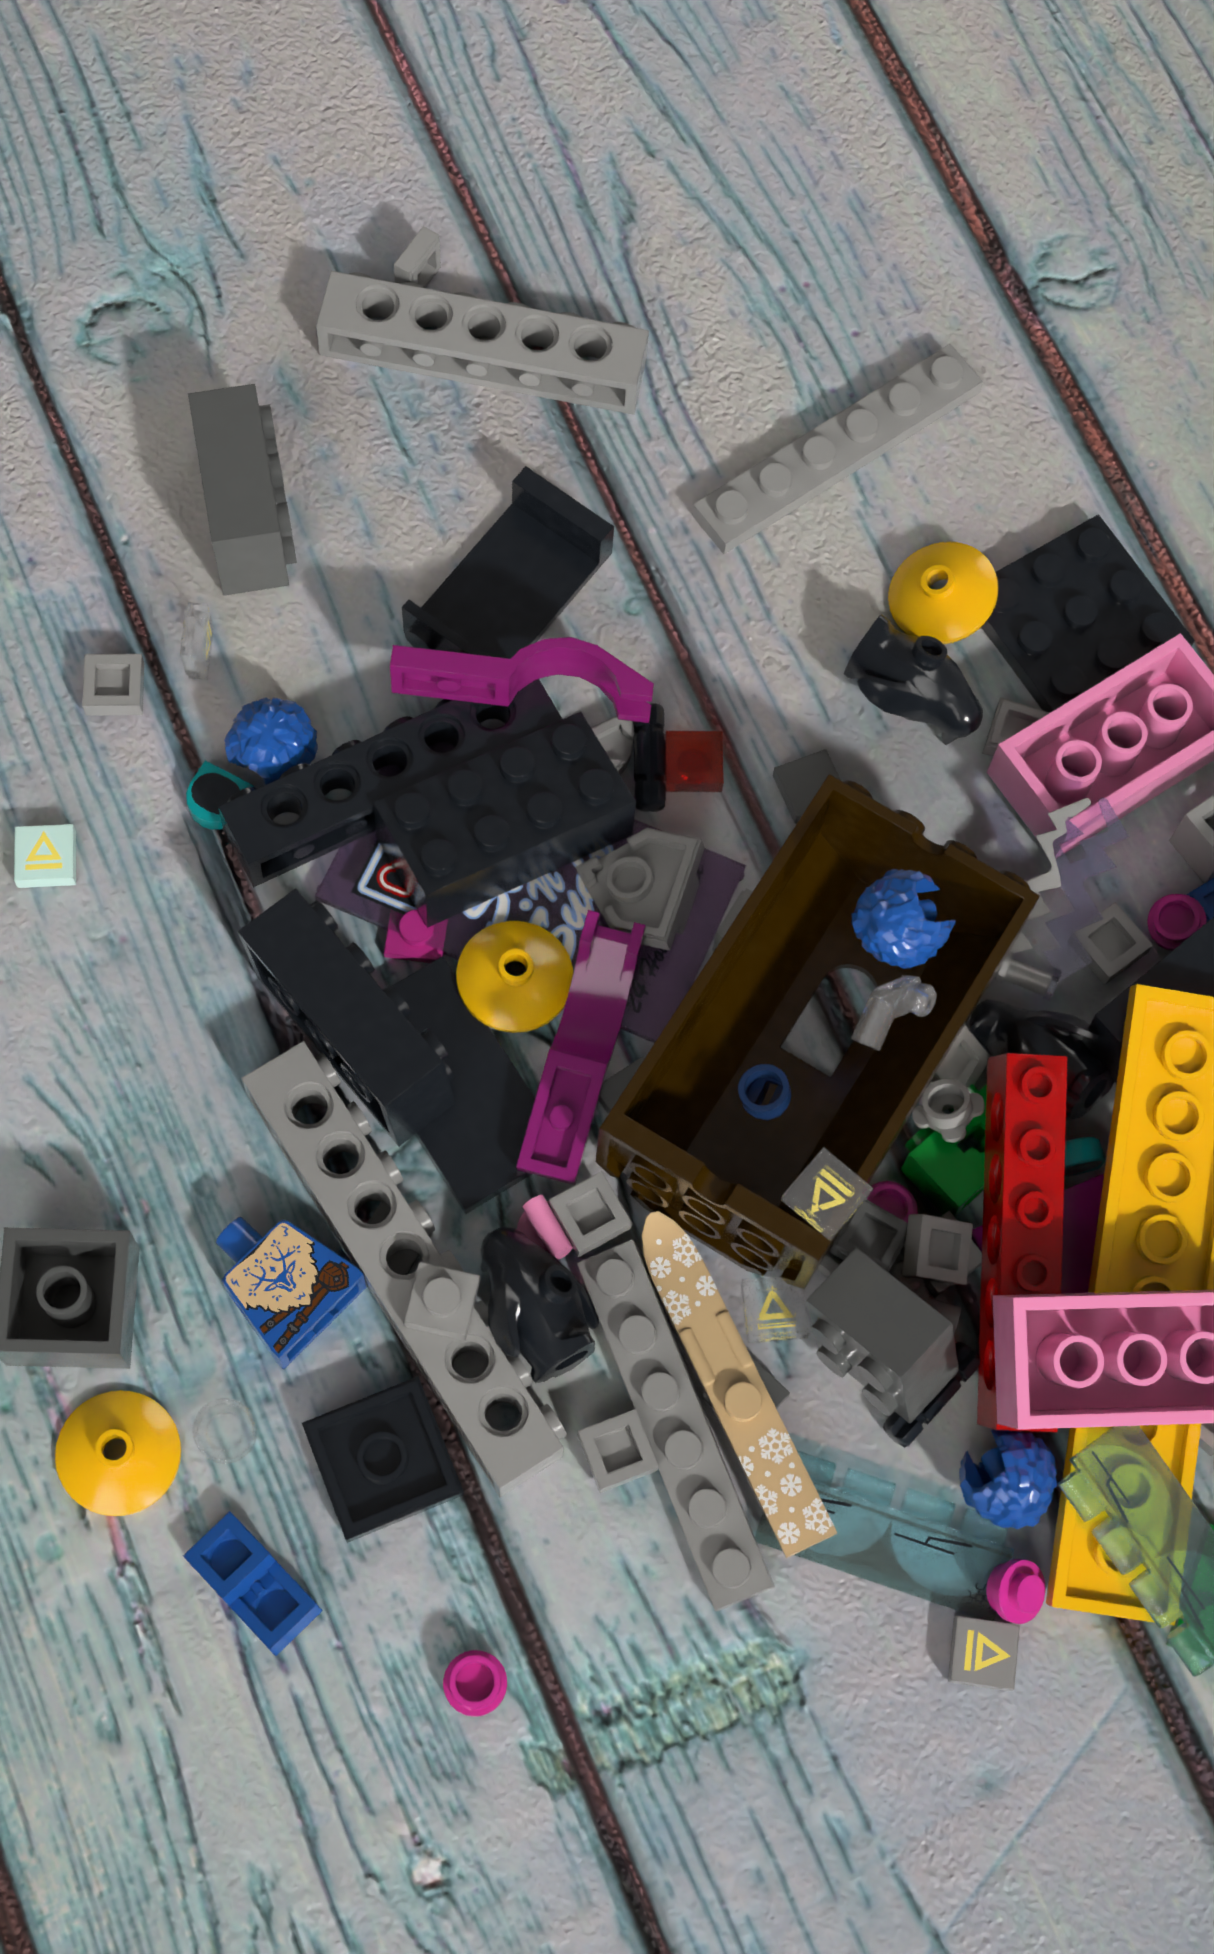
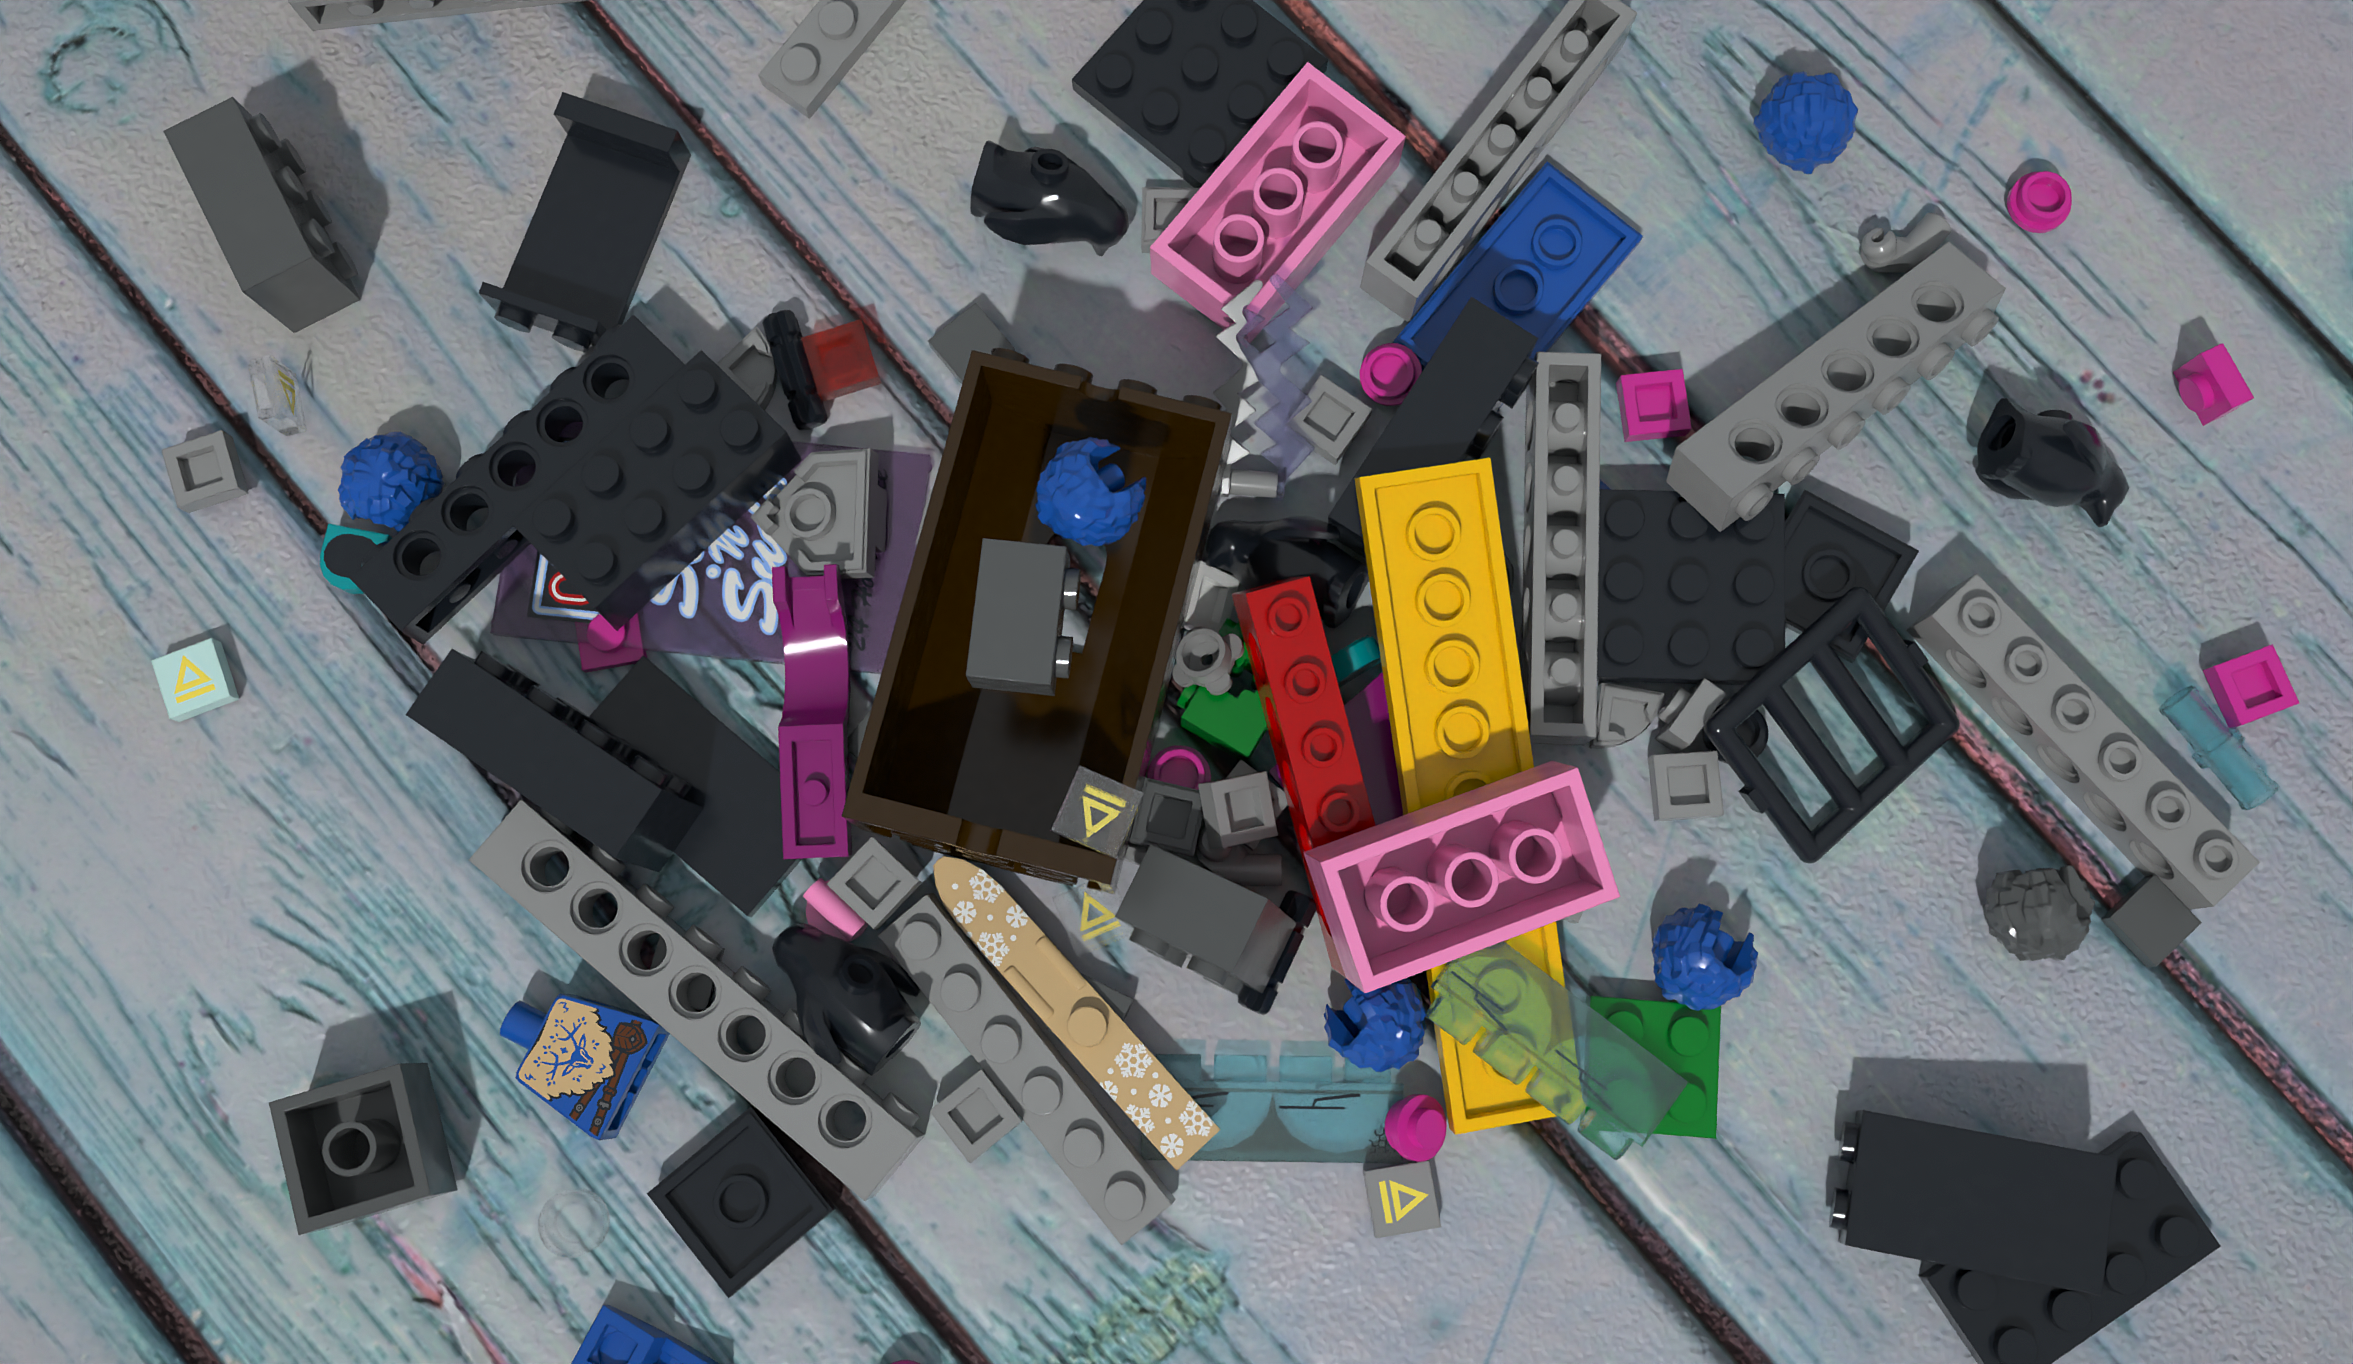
camera: 10 degrees left, 10 degrees up
(139, 1475) = (505, 1273): yellow dish -> none
(442, 1301) = (746, 1029): light grey plate -> none
(499, 679) = (606, 344): magenta piece -> none
(507, 1000) = (741, 677): yellow dish -> none
(754, 1087) = (988, 726): dark blue hinge -> none
(809, 1006) = (1021, 617): none -> dark grey brick
(889, 1002) = (1103, 585): clear arm -> none
(950, 611) = (1067, 104): yellow dish -> none

